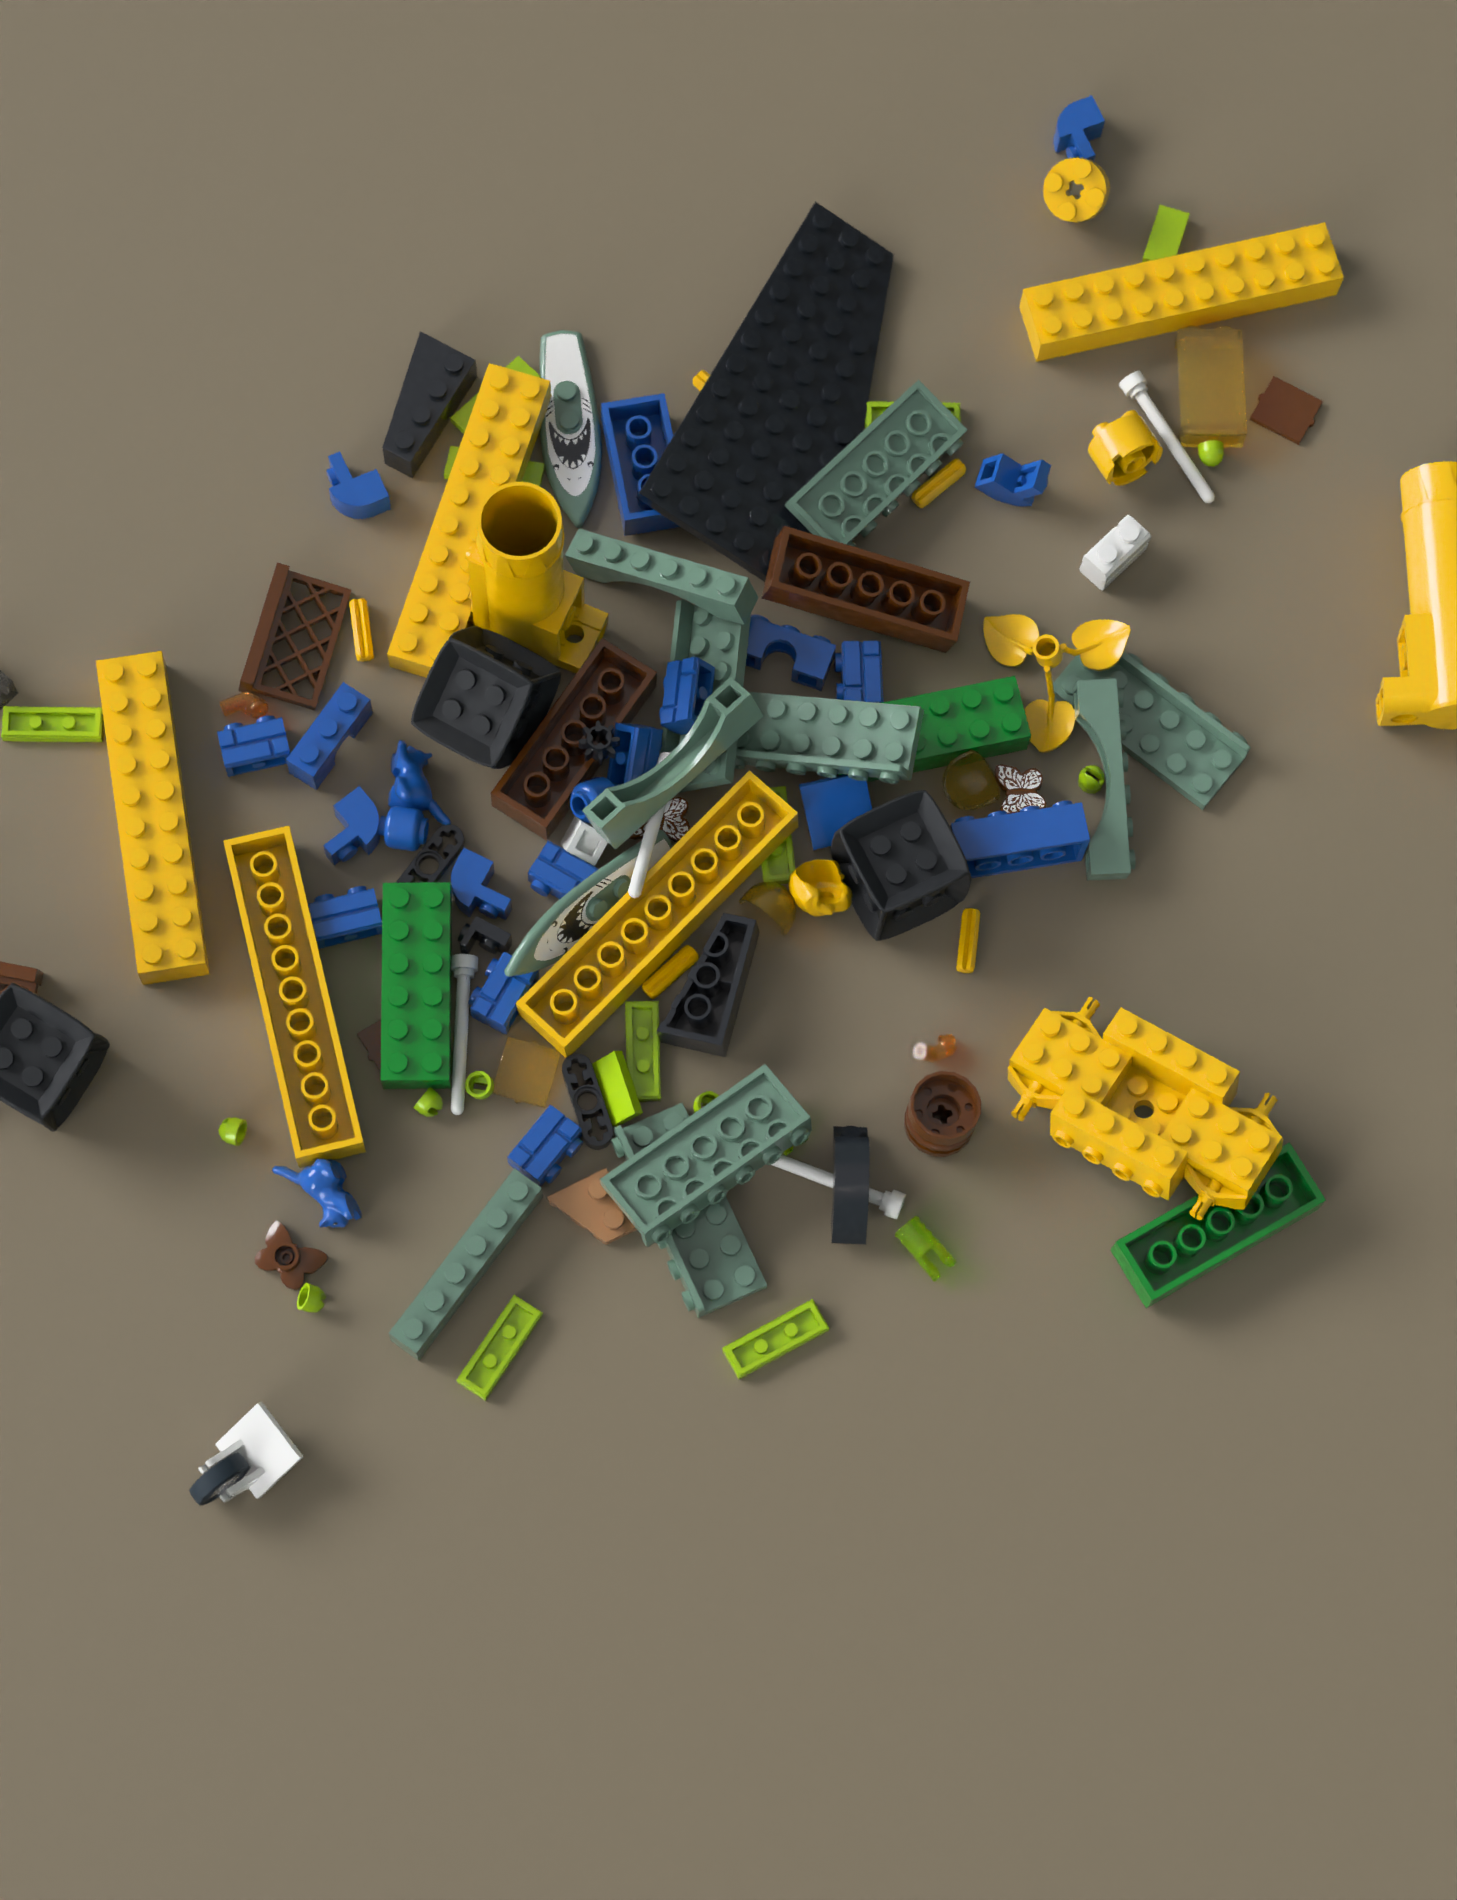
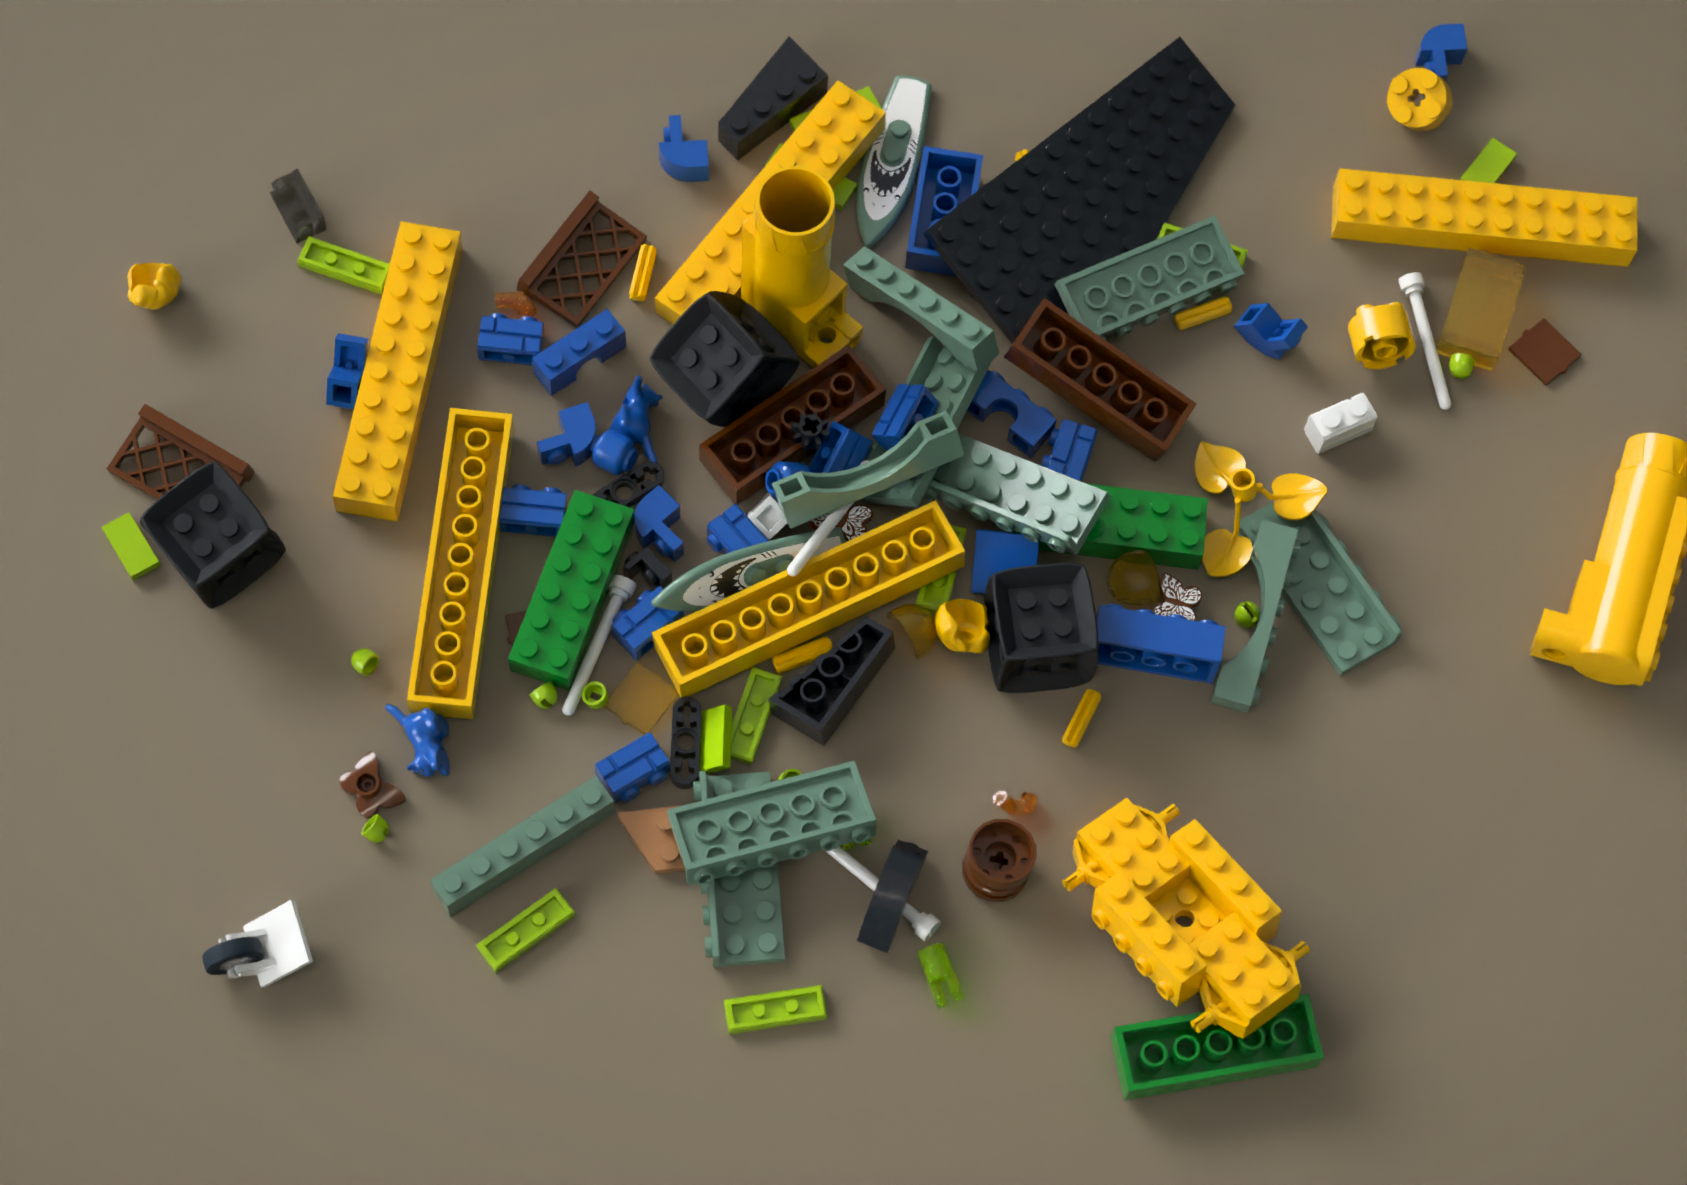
camera: 20 degrees right, 5 degrees down
(101, 837) = (347, 372): none -> blue brick

